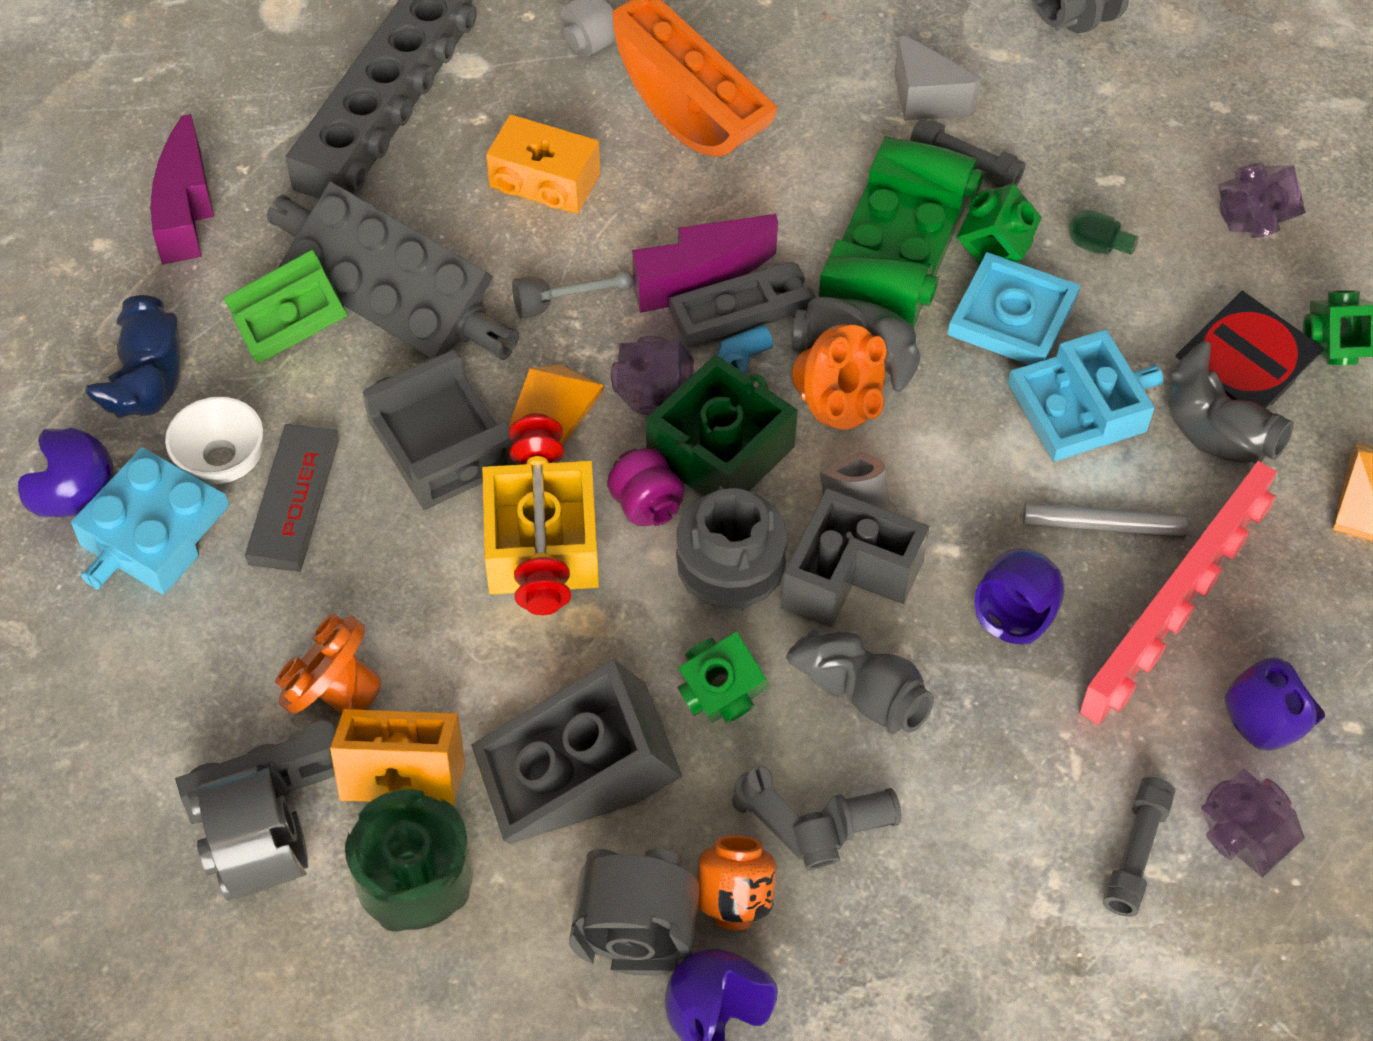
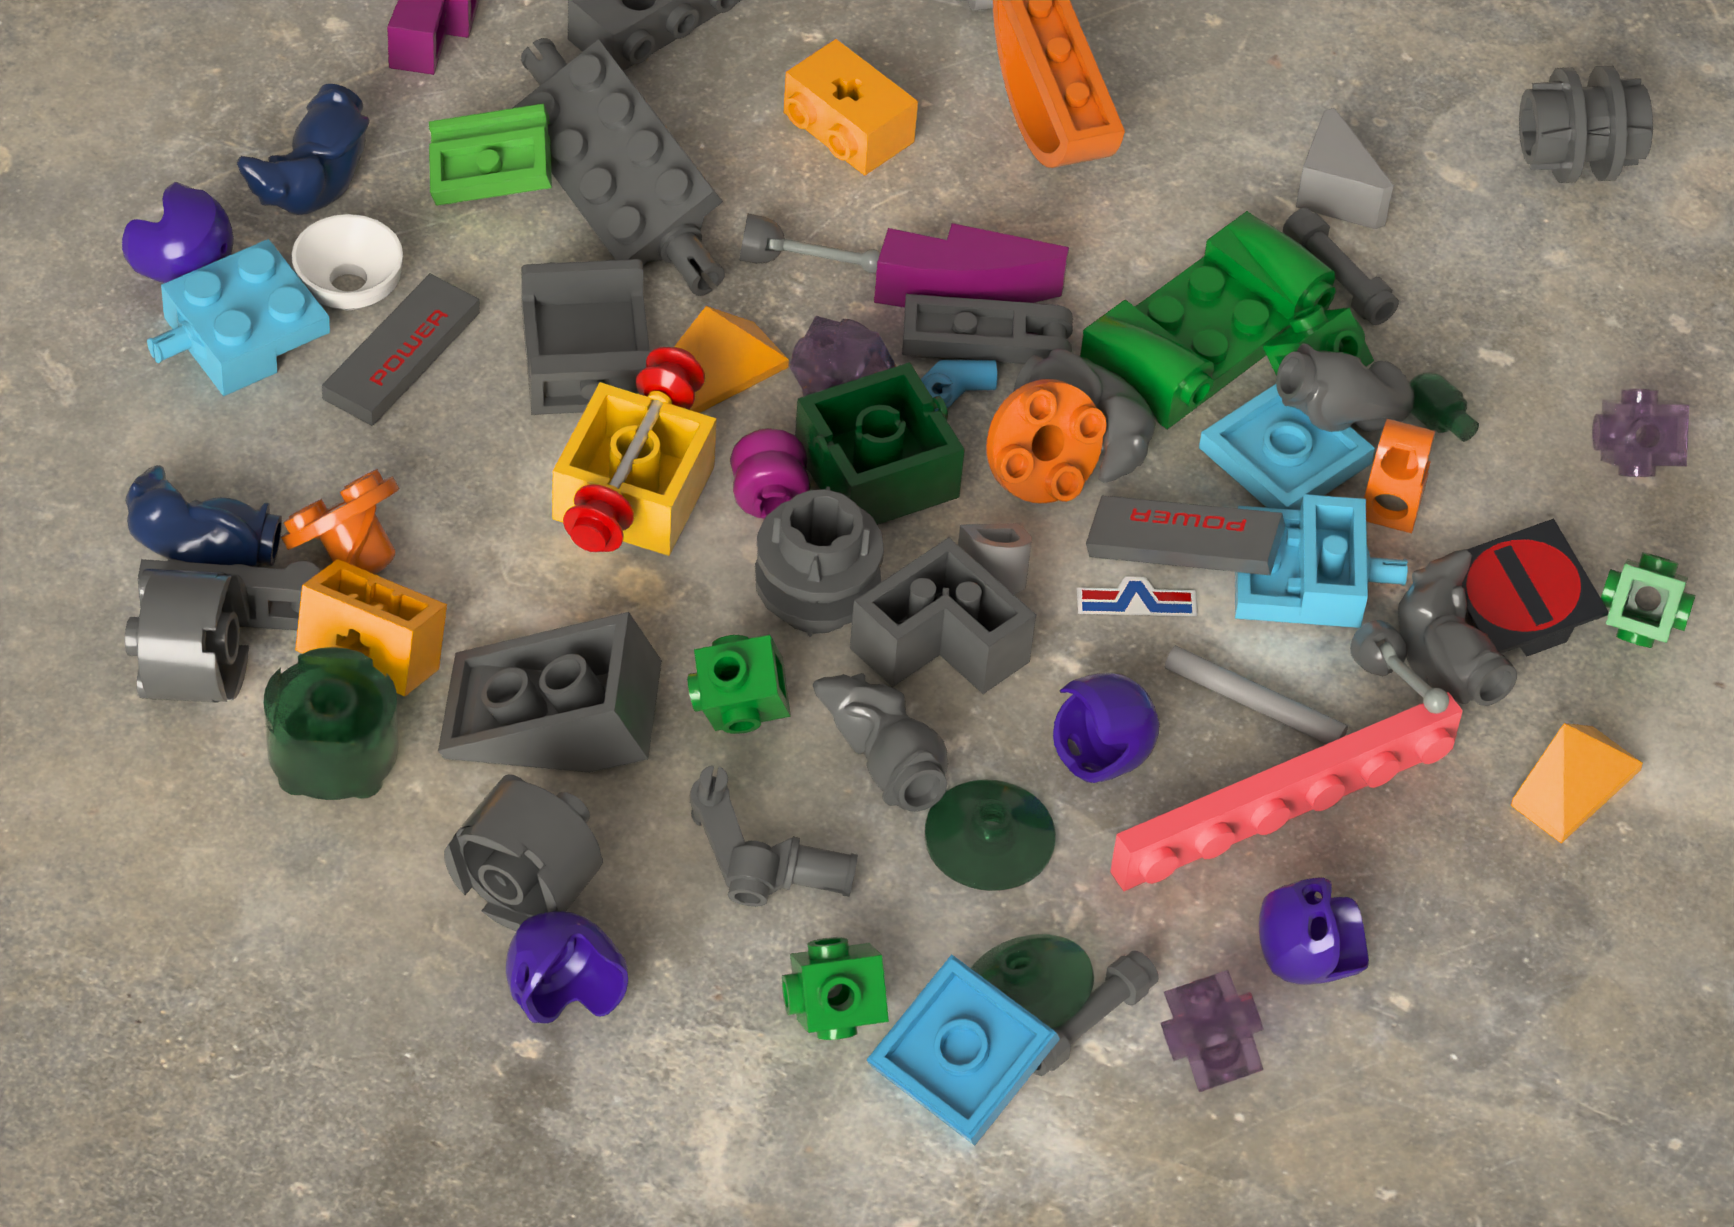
camera: 20 degrees right, 5 degrees down
(208, 732) = (200, 532): none -> dark blue animal
(736, 881) = (643, 872): orange head -> none
(945, 917) = (854, 1001): none -> green brick
(969, 475) = (1136, 597): none -> sticker
(969, 741) = (984, 853): none -> clear green dish
(986, 410) = (1186, 535): none -> dark grey tile
(1040, 249) = (1341, 391): none -> dark grey animal
(1070, 926) = (963, 1049): none -> dark azure tile
(1087, 865) = (1041, 974): none -> clear green dish
(1115, 293) = (1401, 471): none -> orange leg
(1179, 444) = (1391, 658): none -> hinge

